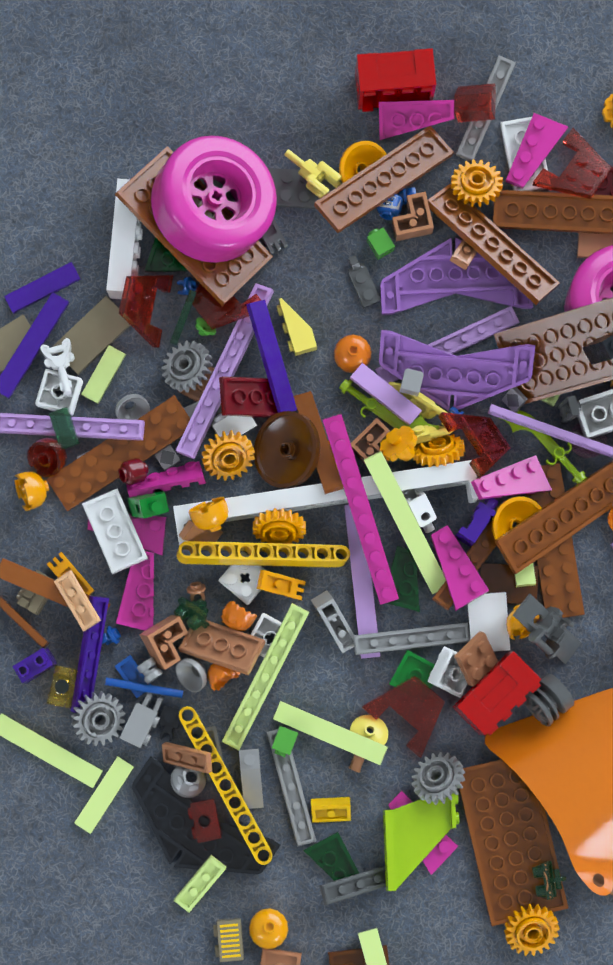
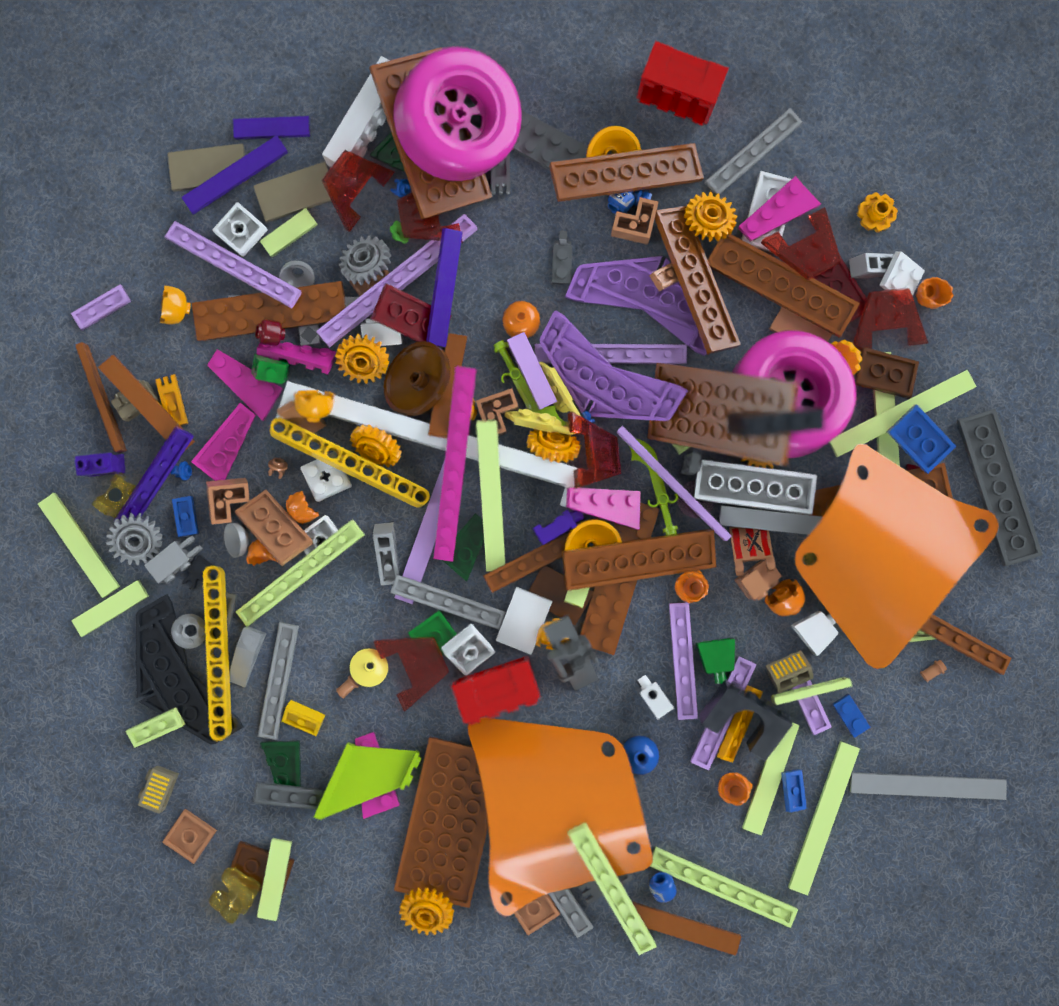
camera: 30 degrees right, 5 degrees up
(46, 457) = (201, 282): clear red cylinder -> none
(60, 362) = (252, 202): white piece -> none
(64, 428) = (226, 264): clear green tile -> none
(77, 600) = (161, 425): light nougat tile -> none
(115, 531) = (228, 378): white tile -> none
(144, 687) = (188, 531): blue bar -> none
(149, 670) = (199, 523): light grey wheel -> none
(183, 317) = (383, 214): clear green bar -> none
(187, 757) = (194, 611): nougat tile -> none
(194, 611) = (265, 483): clear green hips -> none
(207, 808) = (192, 666): clear red brick -> none
(268, 928) = (196, 796): light orange cylinder -> none
(280, 584) = (352, 497): light orange hinge -> none
(284, 741) = (289, 638): bright green brick -> none
(299, 331) = (481, 280): light yellow slope -> none
(315, 174) = (565, 137): light yellow plant -> none
(330, 733) = (333, 651): yellowish green tile -> none
(380, 243) = (595, 230): bright green brick -> none
(399, 444) = (518, 422): light orange plant -> none
(407, 116) = (679, 125): dark pink wing -> none
(411, 382) = (559, 371): light grey piece -> none
(421, 509) = (511, 490): white torso -> none
(434, 789) = (421, 734): light grey gear -> none
(460, 574) = (518, 561): dark pink wing -> none
(475, 102) = (745, 141): clear red slope -> none
(476, 658) = (495, 648): nougat plate -> none
(514, 399) = (646, 431): light grey tile -> none
(548, 888) = (465, 875): clear green hips -> none
(549, 700) = (541, 716): dark grey wheel -> none

